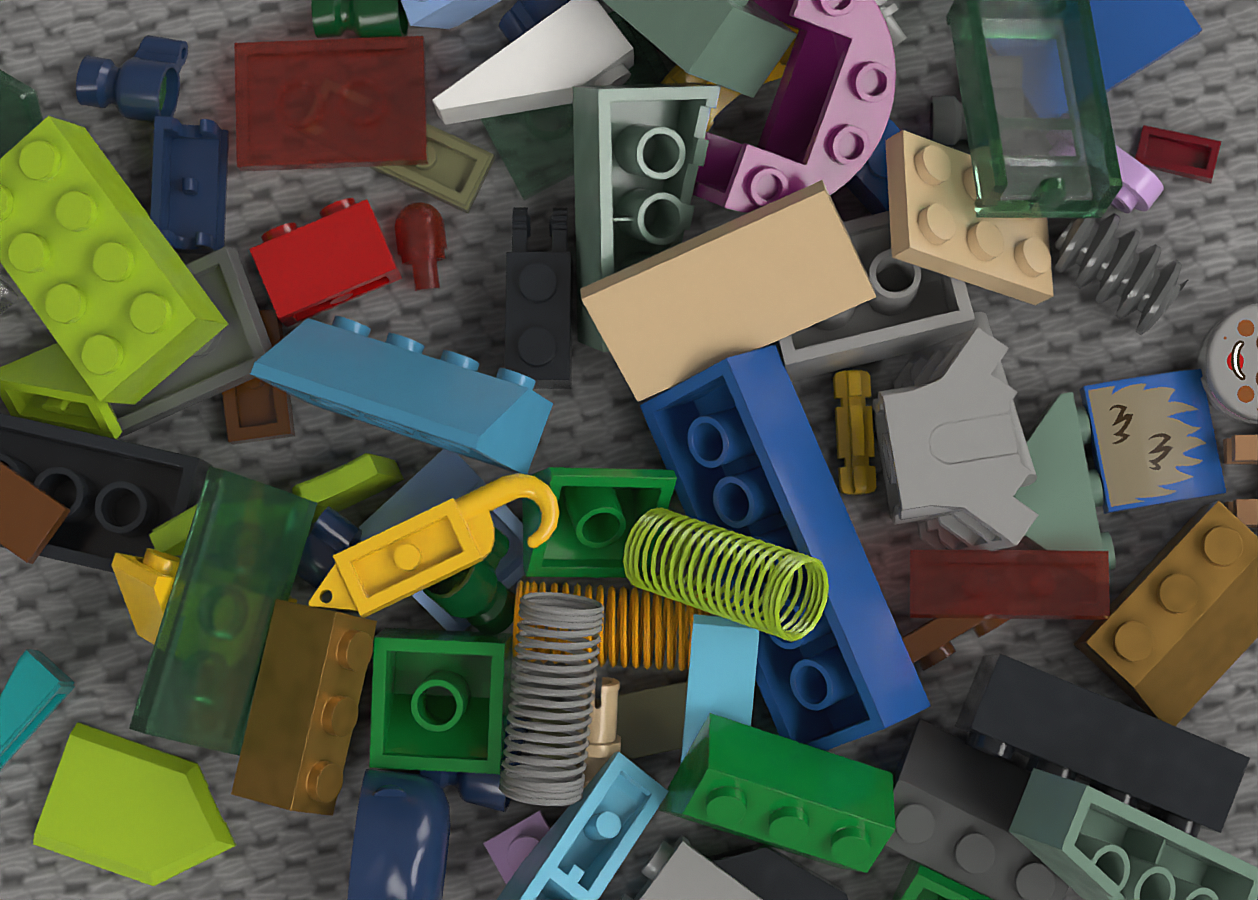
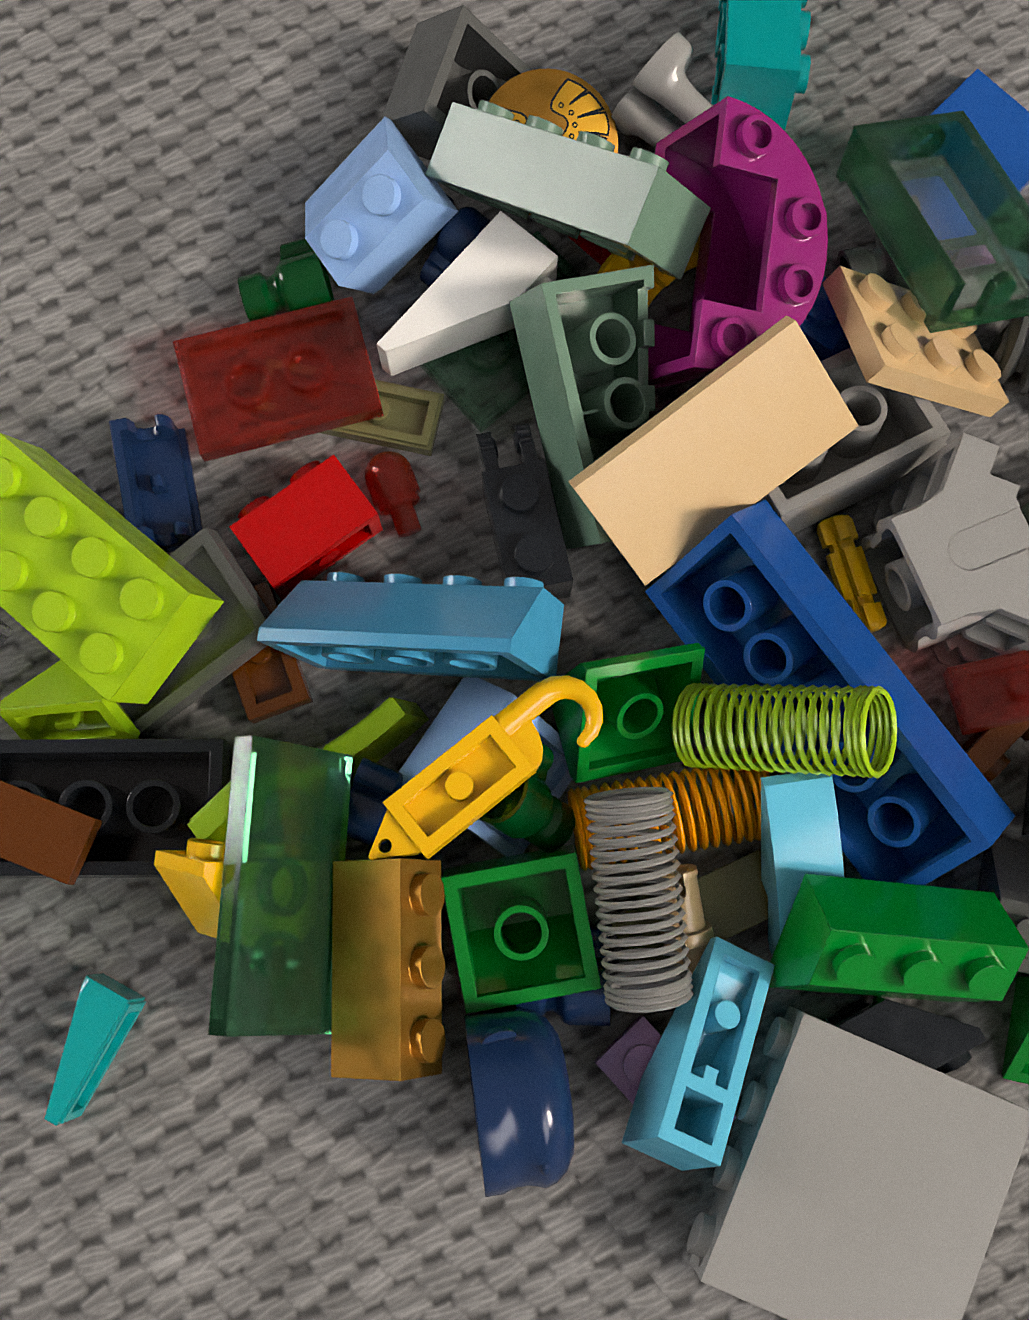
camera: 20 degrees left, 5 degrees down
(130, 809) = (228, 1114): lime tile -> none
(141, 86) = (87, 401): dark blue piece -> none

